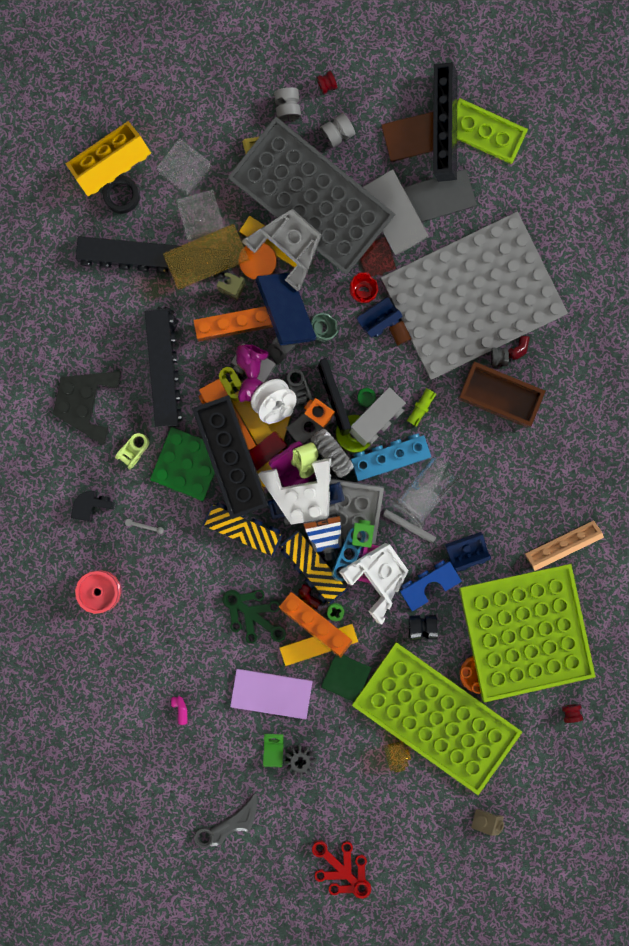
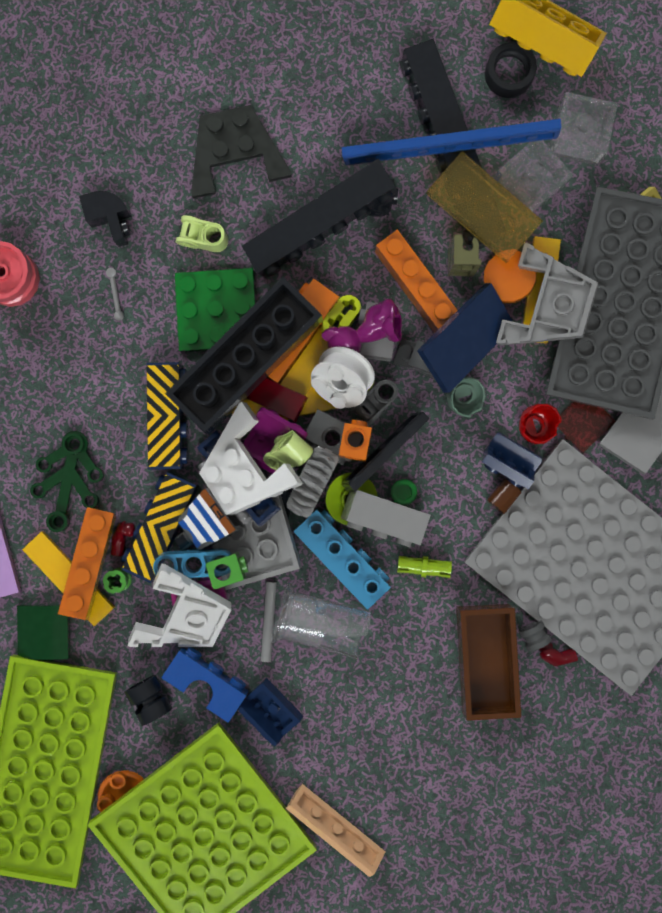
camera: 65 degrees right, 0 degrees up
(154, 258) = (452, 142): none -> blue tile

